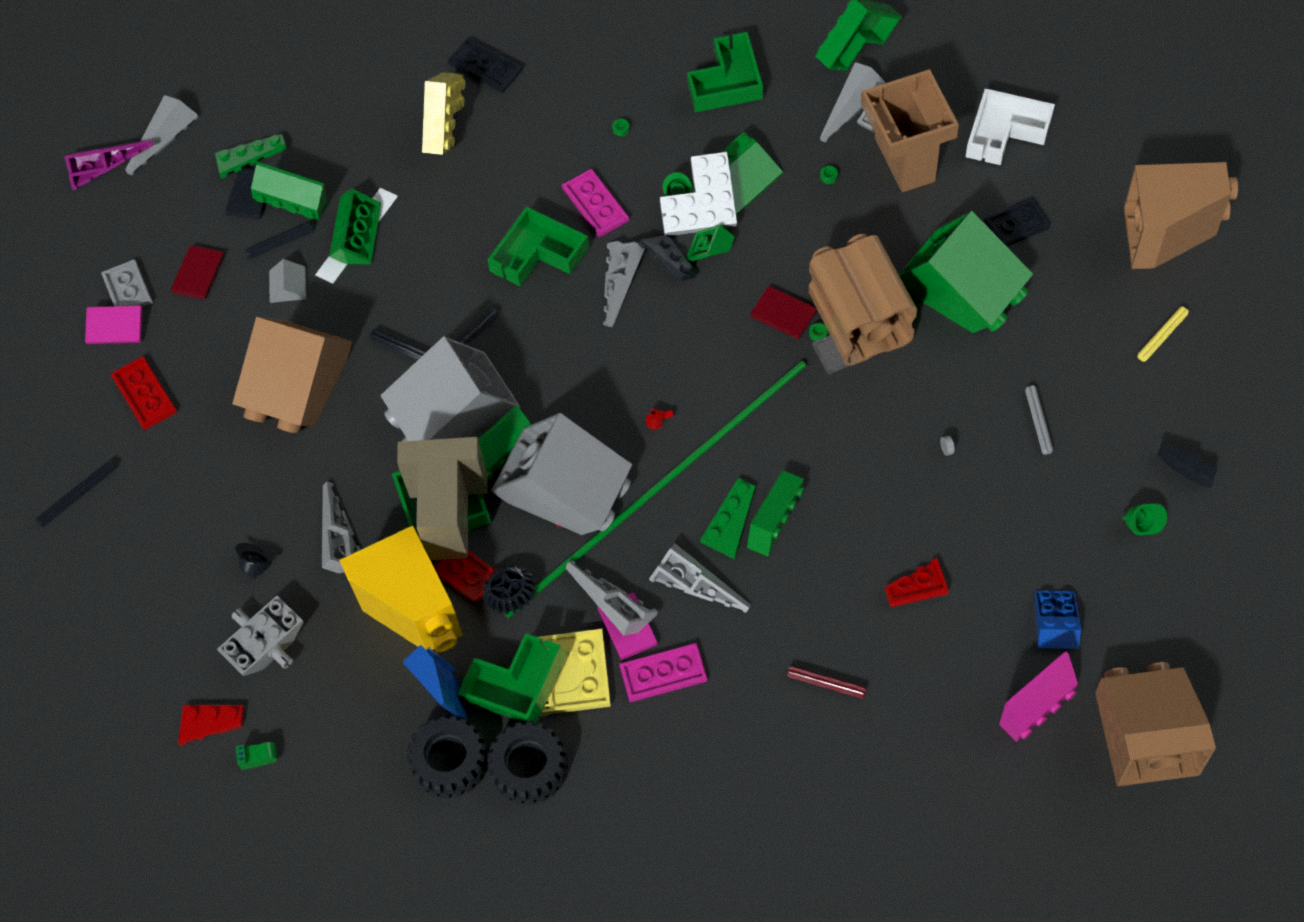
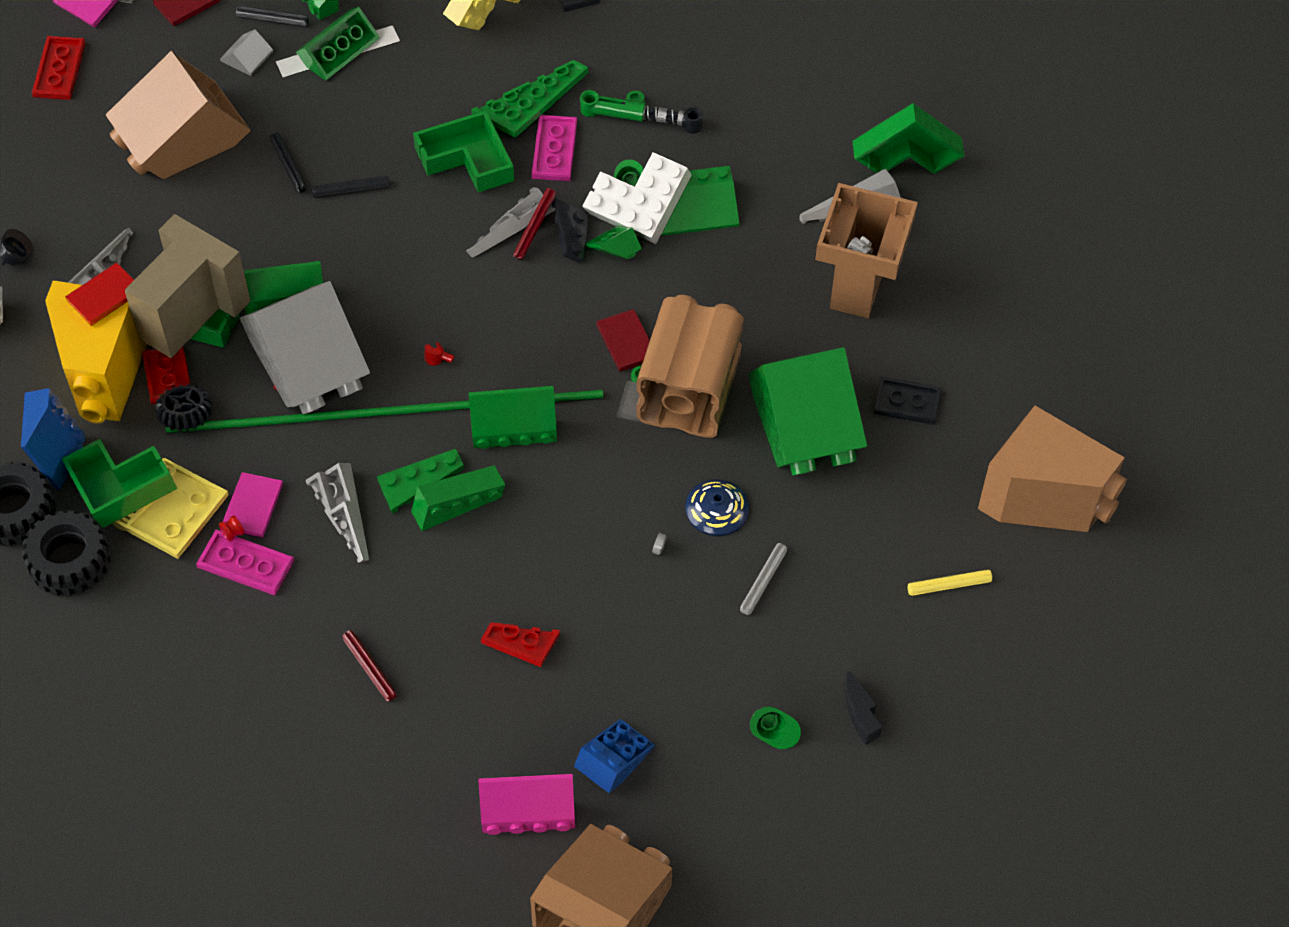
camera: 30 degrees right, 5 degrees down
(392, 543) = (101, 294): none -> red tile
(448, 394) = (280, 218): light grey slope -> none
(545, 177) = (529, 101): none -> green wing
(596, 149) = (593, 104): none -> piece
(613, 601) = (256, 486): light grey wedge -> none
(635, 654) = (231, 528): none -> red wheel
(640, 269) = (534, 224): none -> dark red axle
(732, 81) = (765, 119): green piece -> none
(766, 426) = (513, 417): none -> green slope
(829, 174) = (777, 251): green tile -> none
(915, 128) = (861, 245): none -> light grey gear
(955, 399) = (713, 516): none -> dark blue dish
(1005, 117) = (978, 300): white piece -> none

